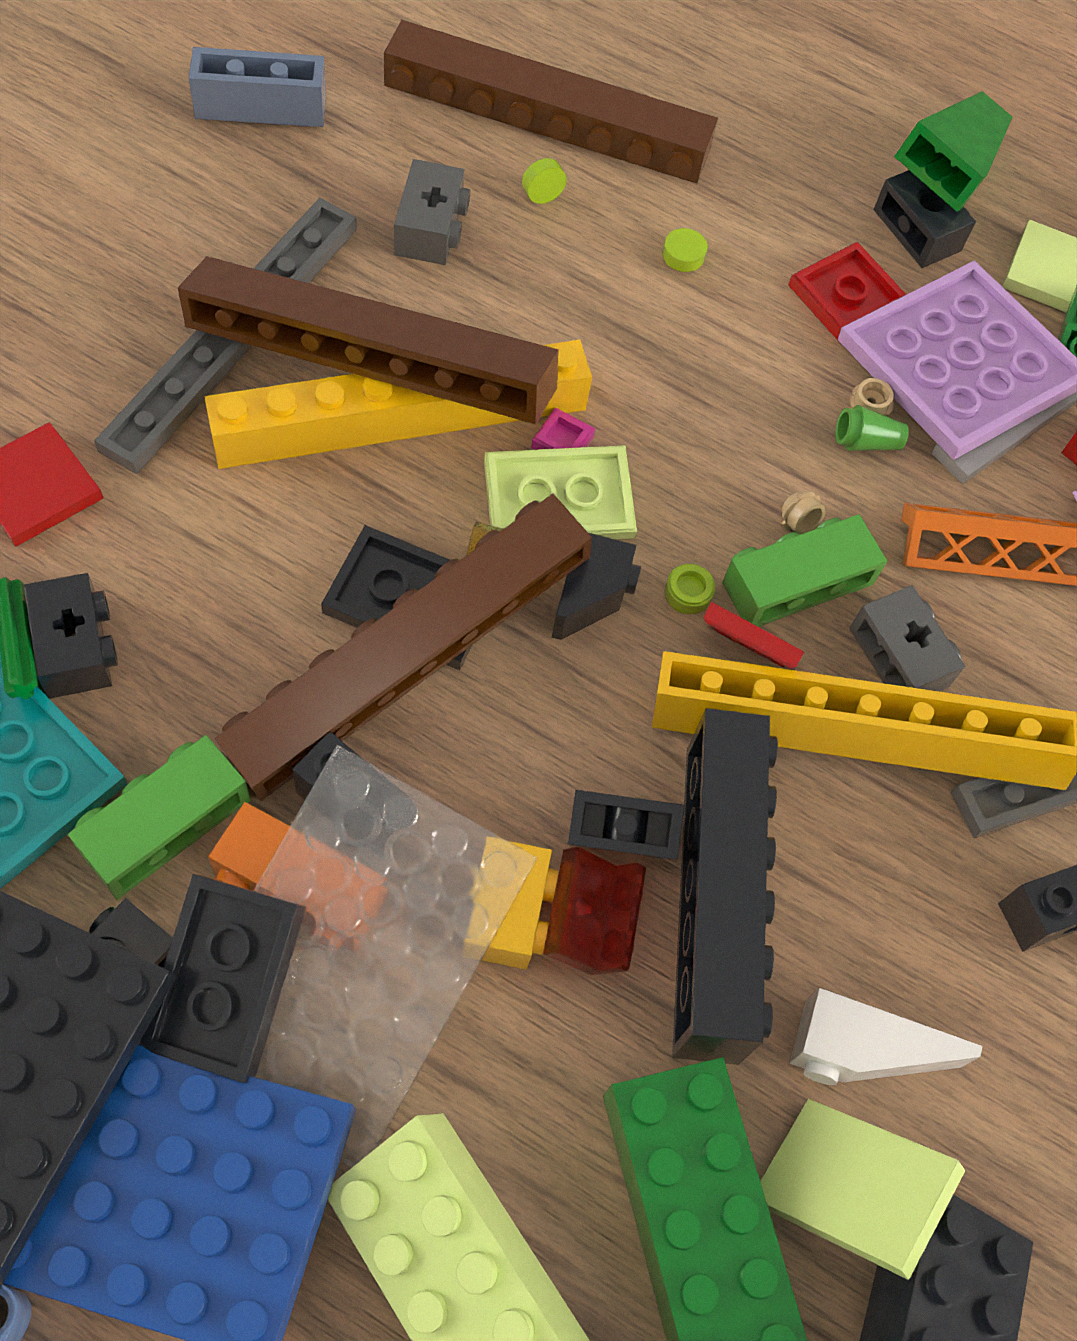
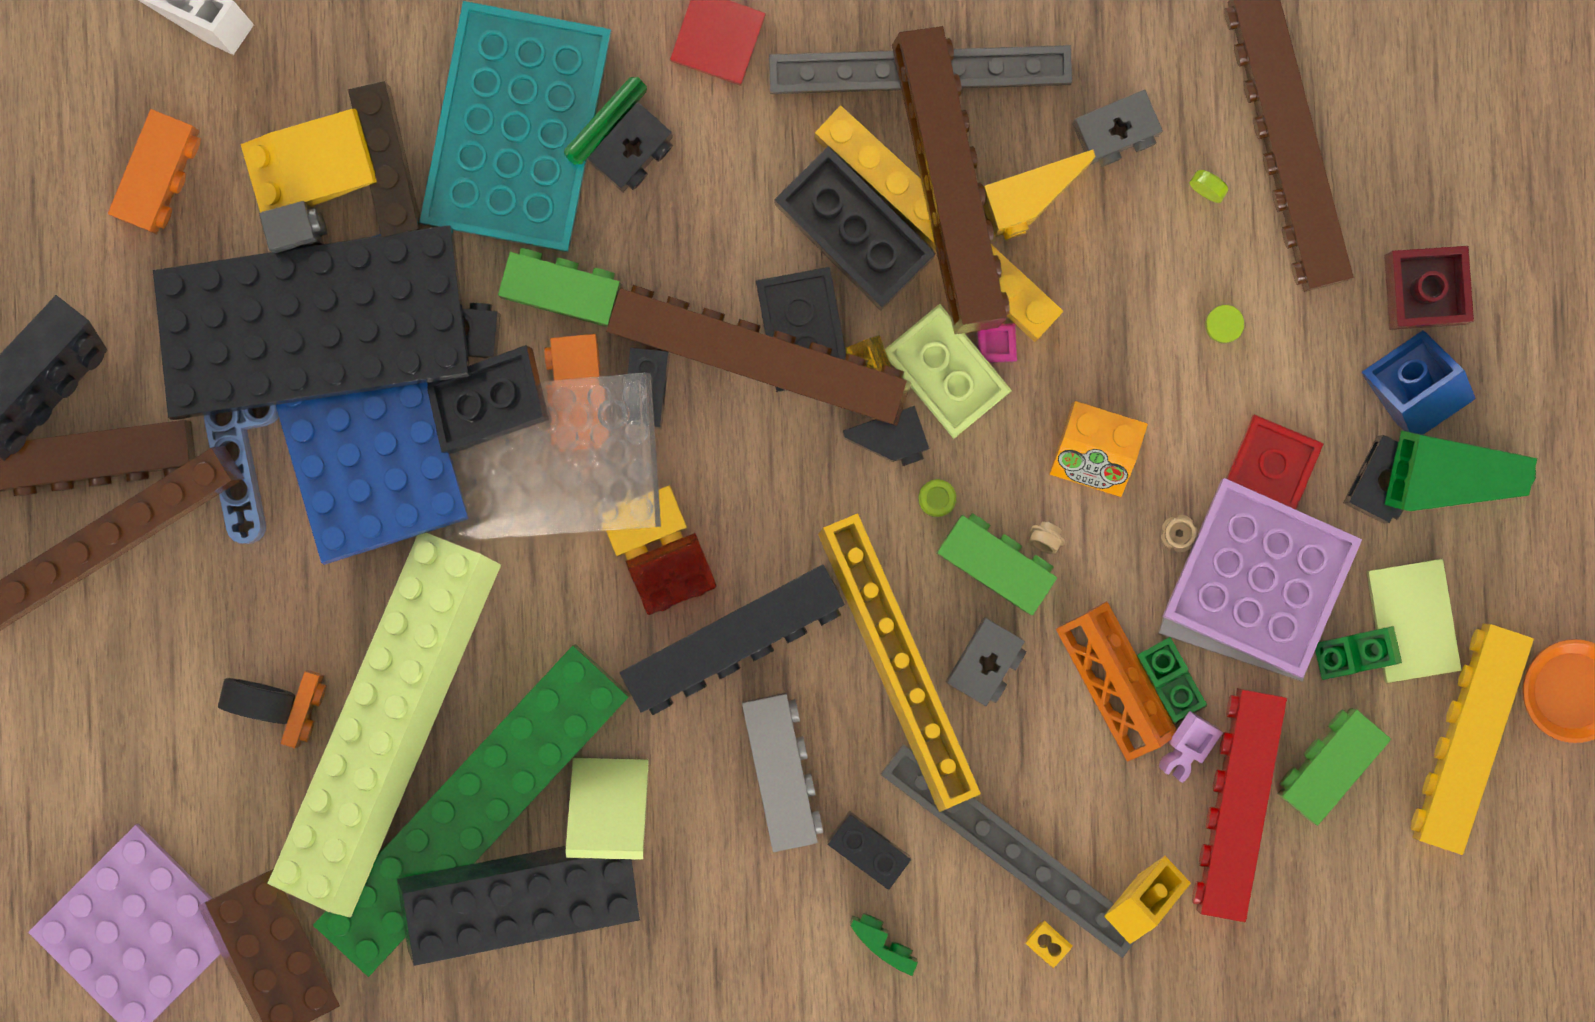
camera: 65 degrees right, 25 degrees up
(344, 472) = (854, 228): none -> black brick
(439, 277) = (1021, 199): none -> yellow slope
(626, 824) = (734, 559): black brick -> none
(737, 409) = (1098, 448): none -> light orange slope
(752, 637) = (913, 562): red tile -> none
(766, 80) = (1429, 287): none -> dark red brick
(850, 141) = (1419, 384): none -> blue slope
(859, 1042) = (698, 774): white slope -> none
(868, 430) = (1148, 546): bright green cone -> none
(917, 944) = (780, 772): none -> light grey brick
(1013, 493) = (1172, 680): none -> green slope

